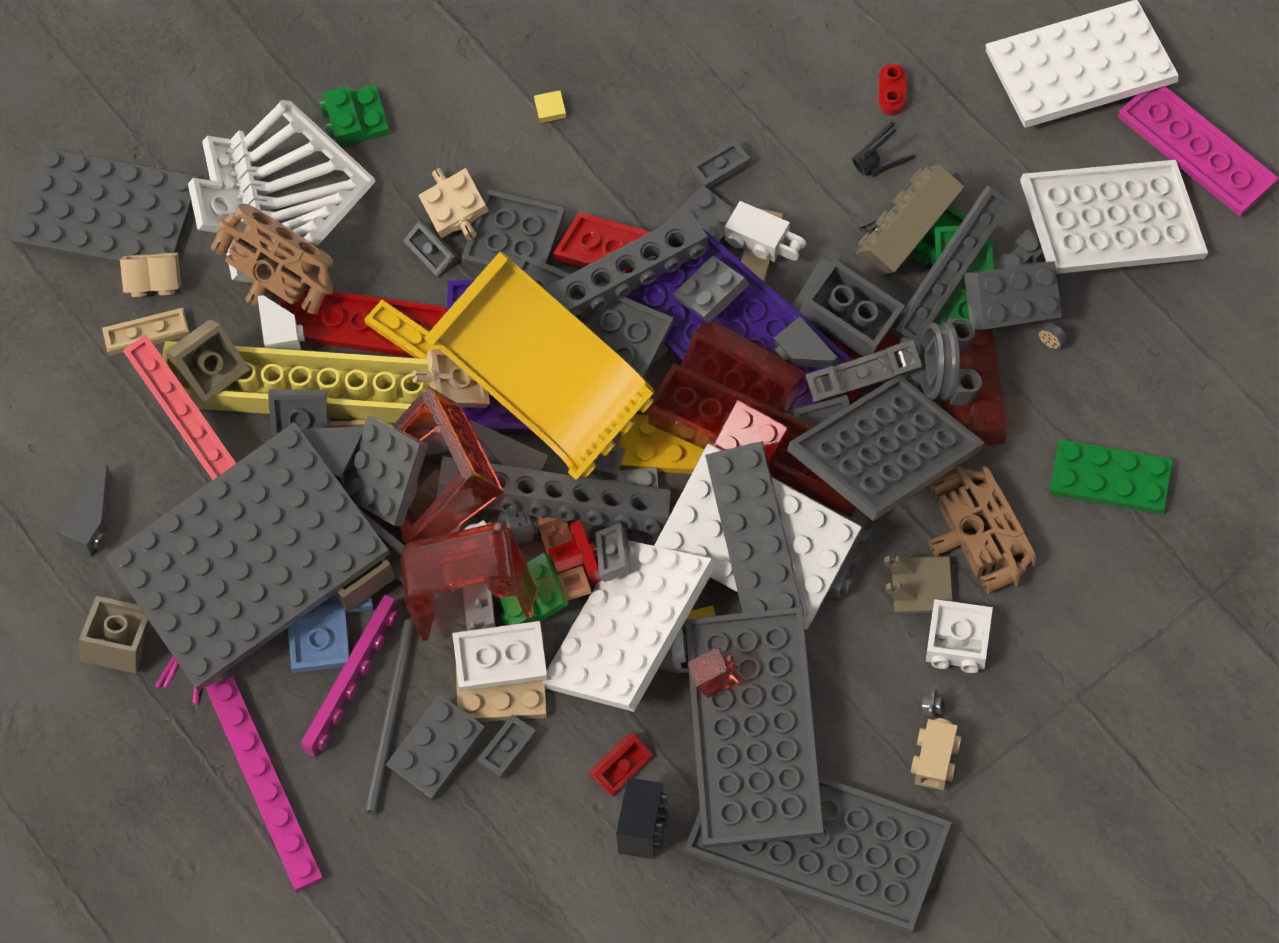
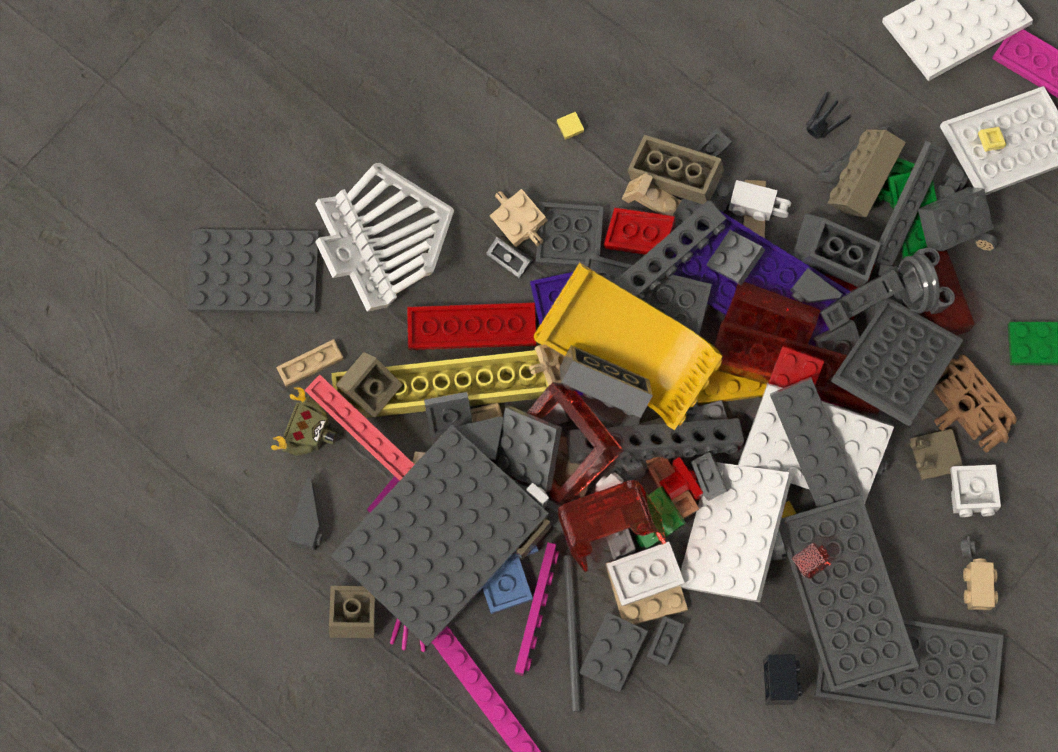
camera: 15 degrees left, 10 degrees up
(118, 405) = (305, 428): none -> olive torso
(150, 273) = (303, 317): tan brick -> none
(279, 326) = (414, 345): white slope -> none
(287, 254) = (392, 281): medium nougat piece -> none
(354, 115) = (424, 159): green plate -> none
(382, 527) = (537, 494): none -> white plate
(399, 330) = (507, 329): yellow tile -> none
(502, 406) = (605, 382): none -> dark grey brick
(619, 763) = (750, 636): red slope -> none
(629, 205) = (650, 196): none -> tan bracket
(666, 176) = (677, 169): none -> dark tan brick
(892, 87) = (820, 65): red plate -> none
(1084, 206) = (992, 139): none -> light yellow tile

